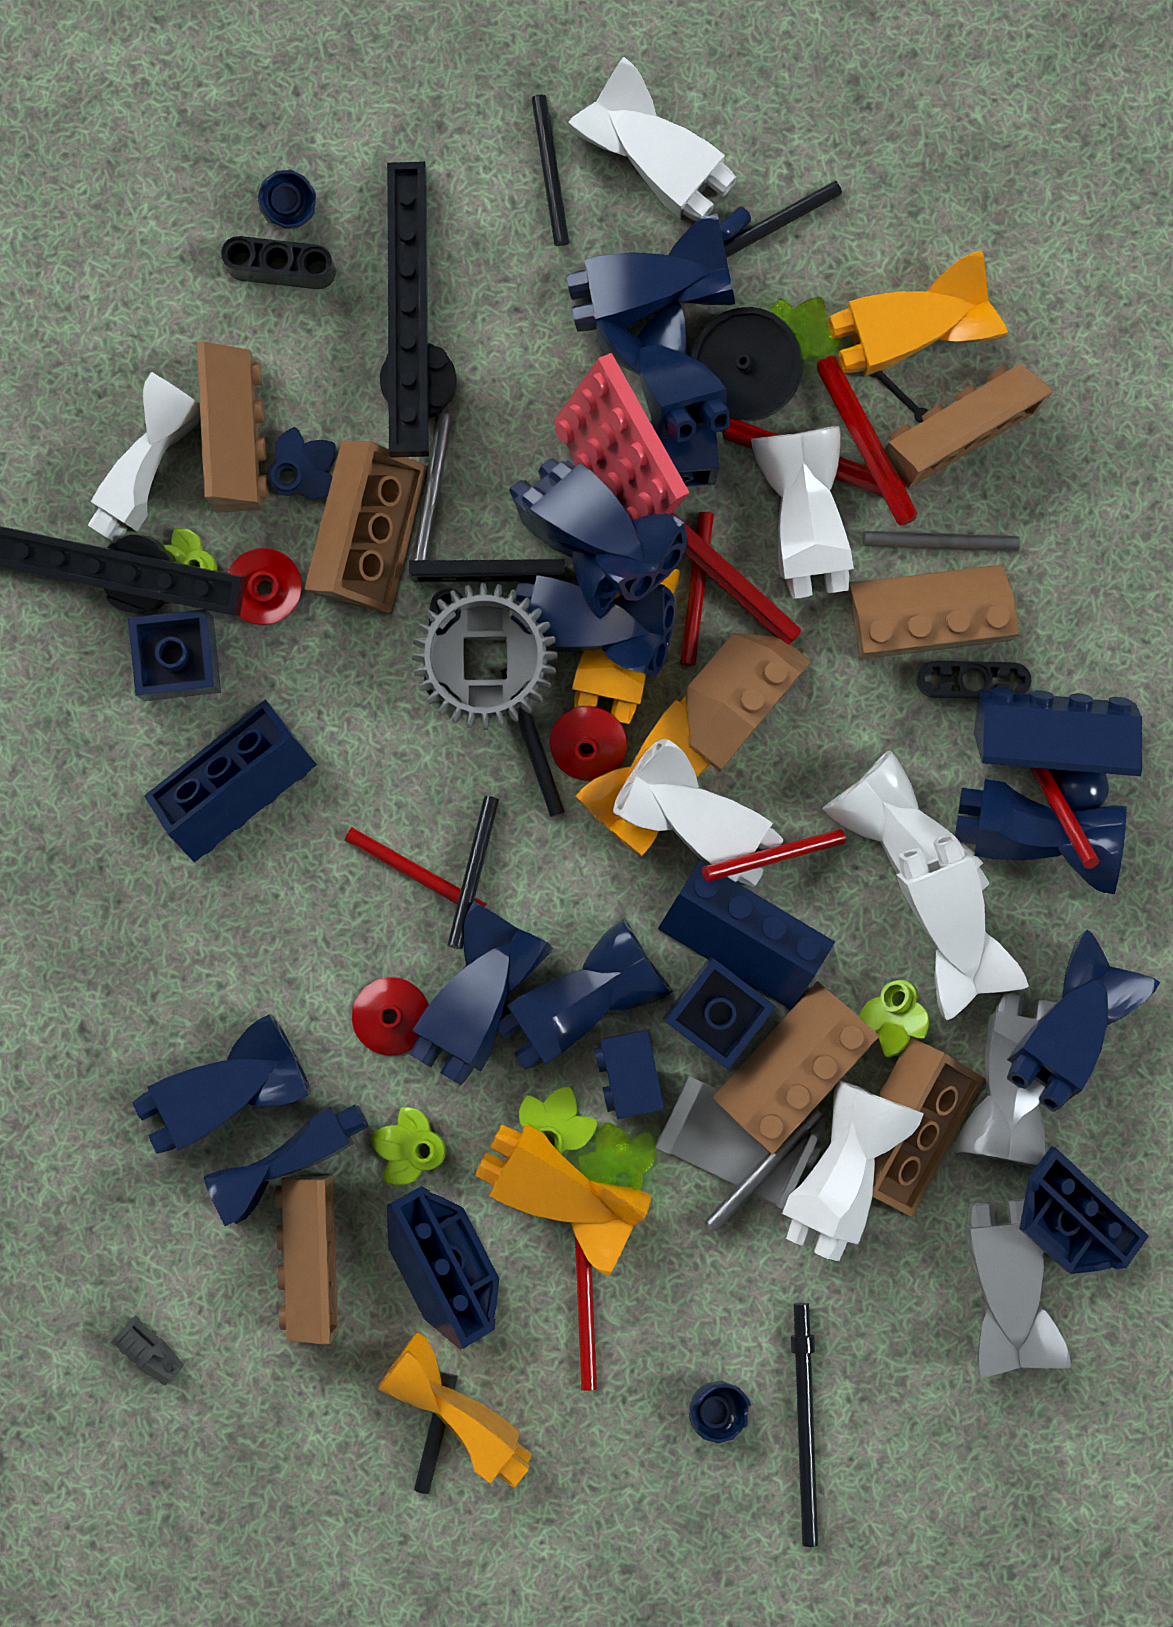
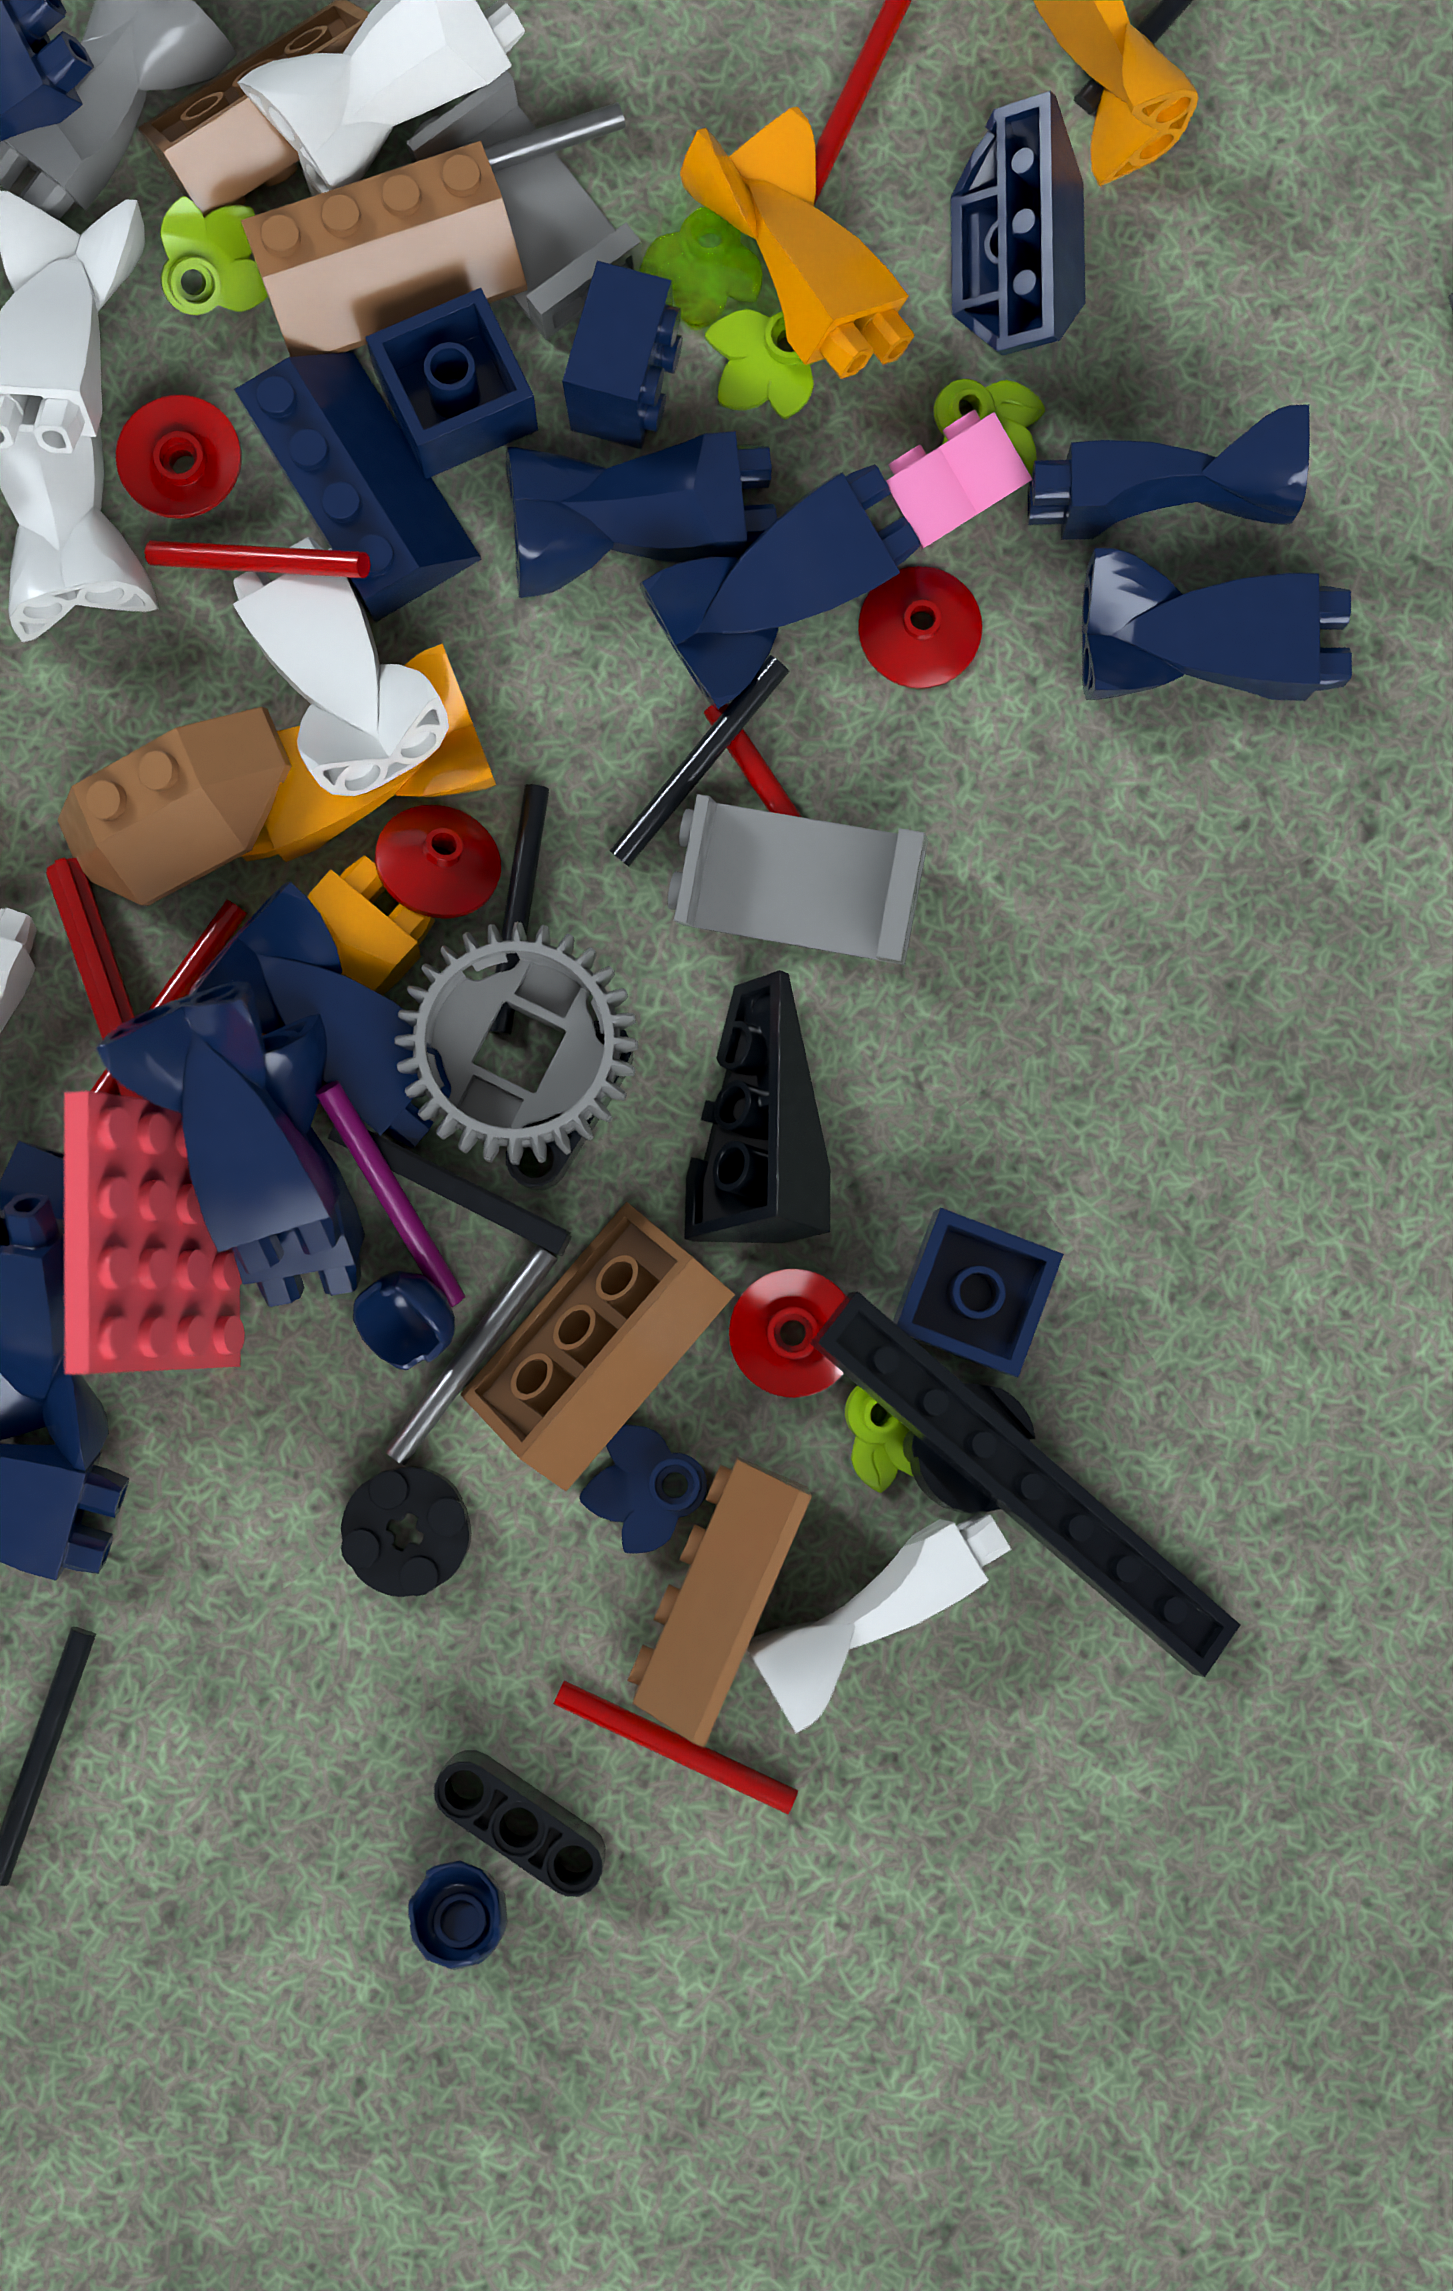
camera: 155 degrees left, 0 degrees up
(229, 781) = (986, 1071): dark blue slope -> none
(243, 341) = (676, 1747): none -> red bar
(309, 1258) = (1212, 327): medium nougat slope -> none
(330, 680) = (766, 1145): none -> black wedge
(383, 833) = (798, 880): none -> light grey panel
(407, 310) = (360, 1644): black plate -> none
(409, 1102) = (957, 478): none -> bright pink brick
(474, 487) = (404, 1319): none -> dark blue hair
(514, 546) = (388, 1190): none -> magenta bar
(873, 892) = (161, 435): none -> red dish

